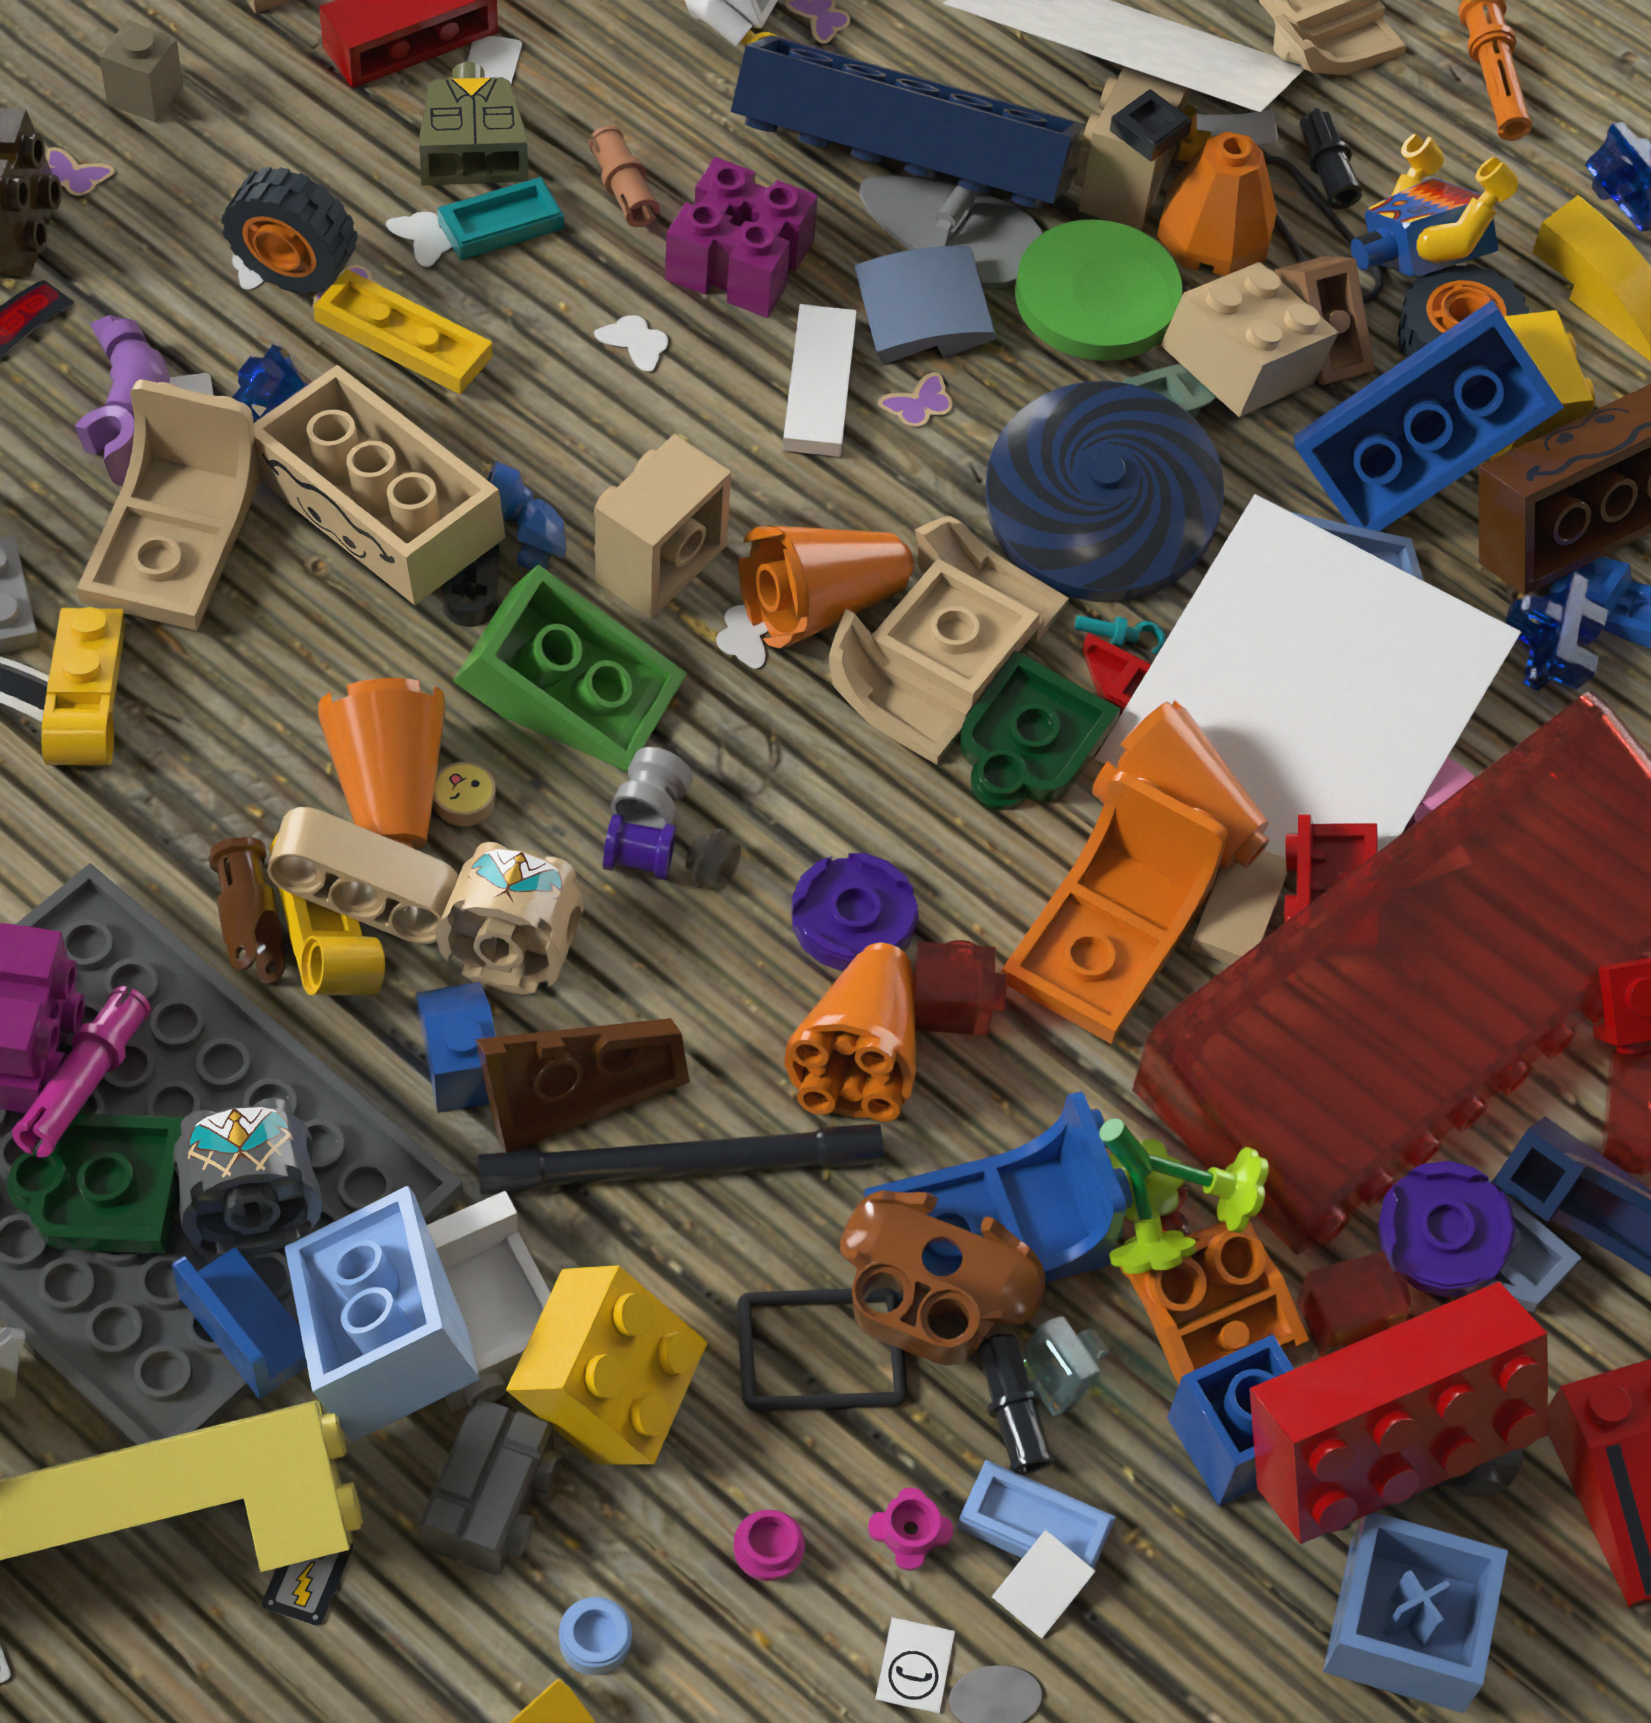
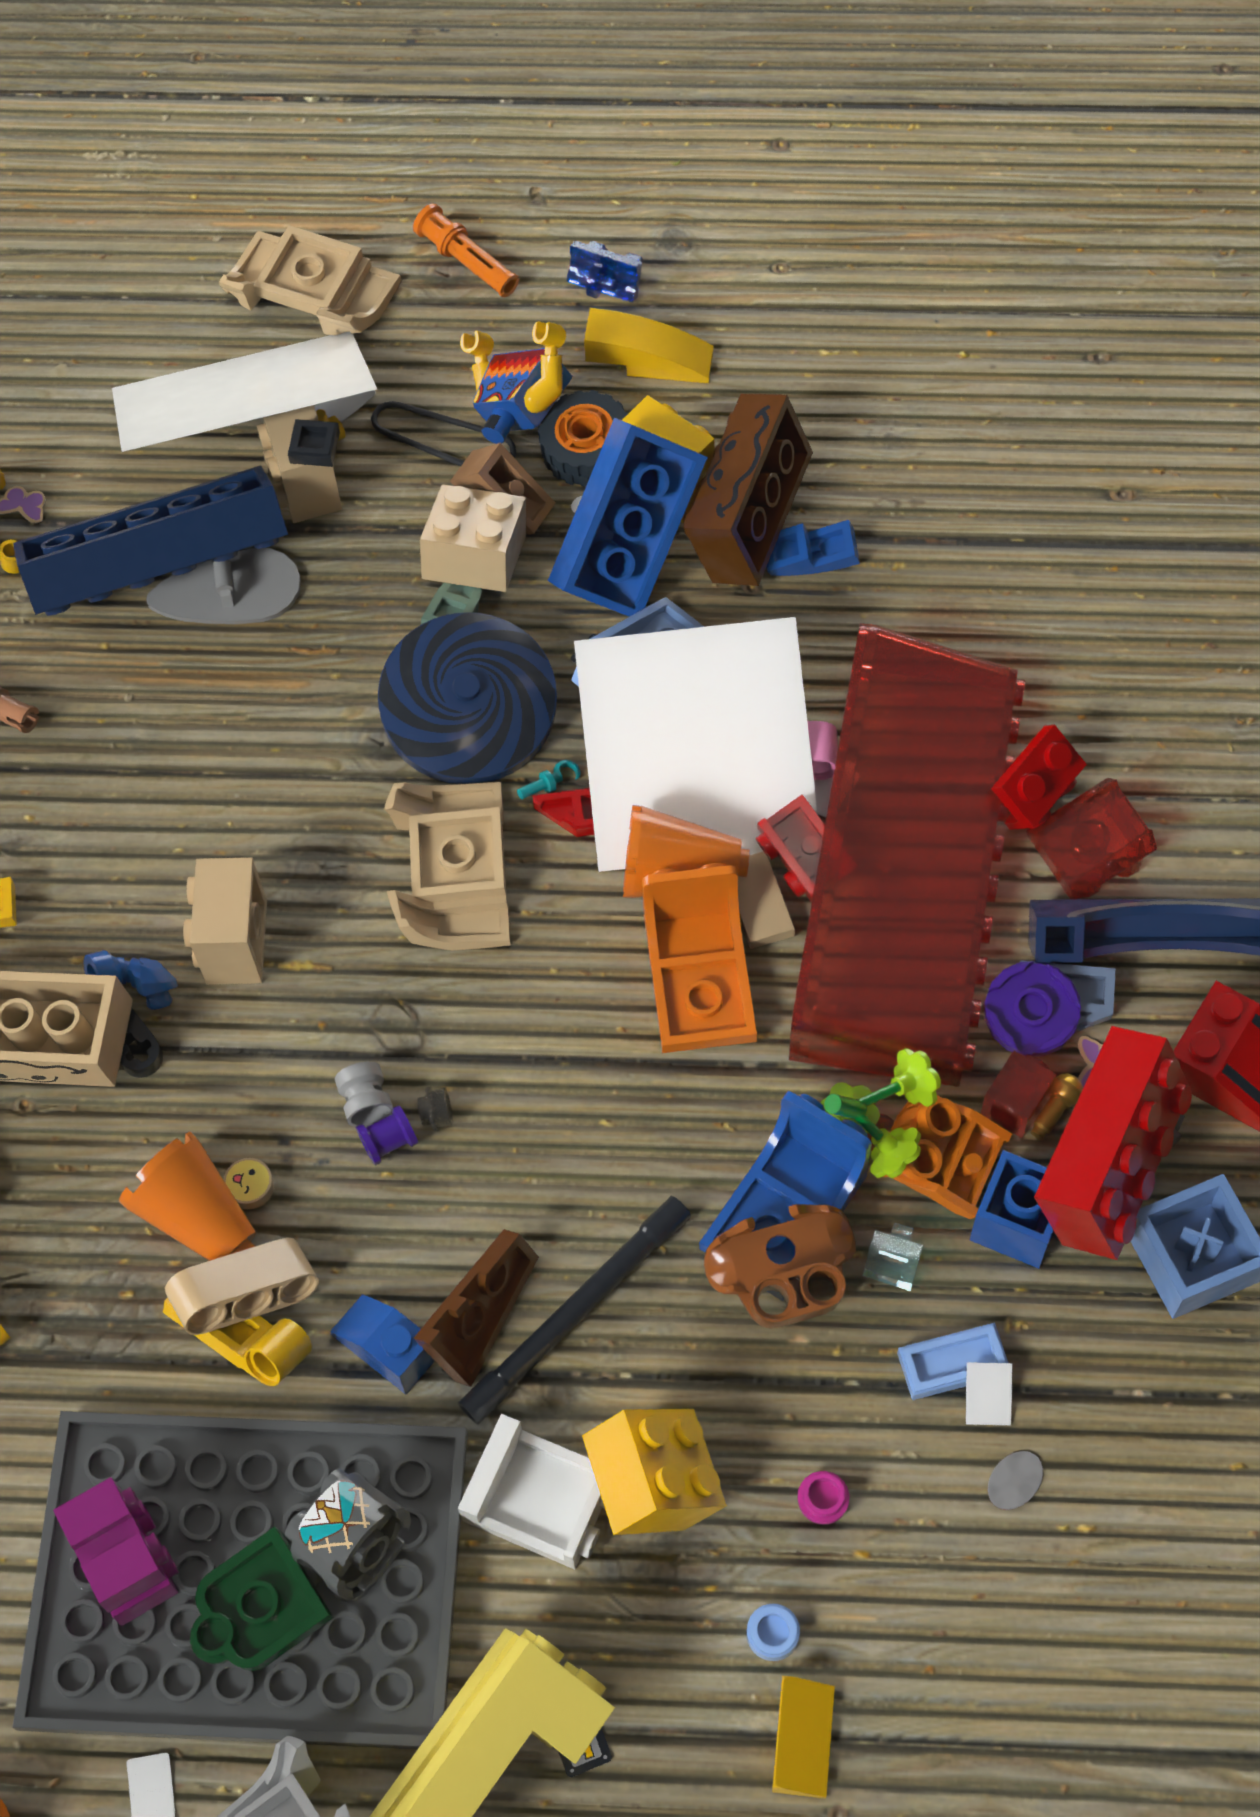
camera: 30 degrees left, 5 degrees up
(96, 1050) = (180, 1529): dark pink pin -> none
(243, 1320) = (418, 1618): blue panel -> none
(248, 907) = (183, 1361): reddish brown piece -> none
(378, 1316) = (497, 1550): light blue slope -> none
(488, 1487) = (642, 1597): dark grey brick -> none
(511, 919) = (355, 1242): tan brick -> none
(569, 671) = (246, 1056): bright green slope -> none
(633, 333) = (87, 804): white sticker -> none
(740, 237) = (106, 692): magenta brick -> none
(742, 637) = (325, 947): white sticker -> none
(809, 576) = (348, 884): orange cone -> none
(813, 1401) = (772, 1392): black piece -> none
(819, 380) = (233, 750): white tile -> none
(851, 905) = (543, 1076): dark purple tile -> none
(859, 1040) = (620, 1152): orange cone -> none
(915, 408) = (306, 719): medium lavender sticker -> none
(915, 1665) = (957, 1498): white sticker -> none
(916, 1509) = (901, 1411): dark pink plate -> none
(925, 302) = (255, 652): sand blue slope -> none
(956, 987) = (644, 1077): clear red brick -> none
(1014, 1404) = (887, 1302): black axle -> none
(1032, 735) = (553, 885): dark green plate -> none
(1098, 289) = (355, 569): bright green piece -> none
(1220, 207) = (383, 464): orange cone -> none
(1330, 159) = (418, 382): black axle -> none
(1559, 624) = (798, 579): clear blue hips -> none

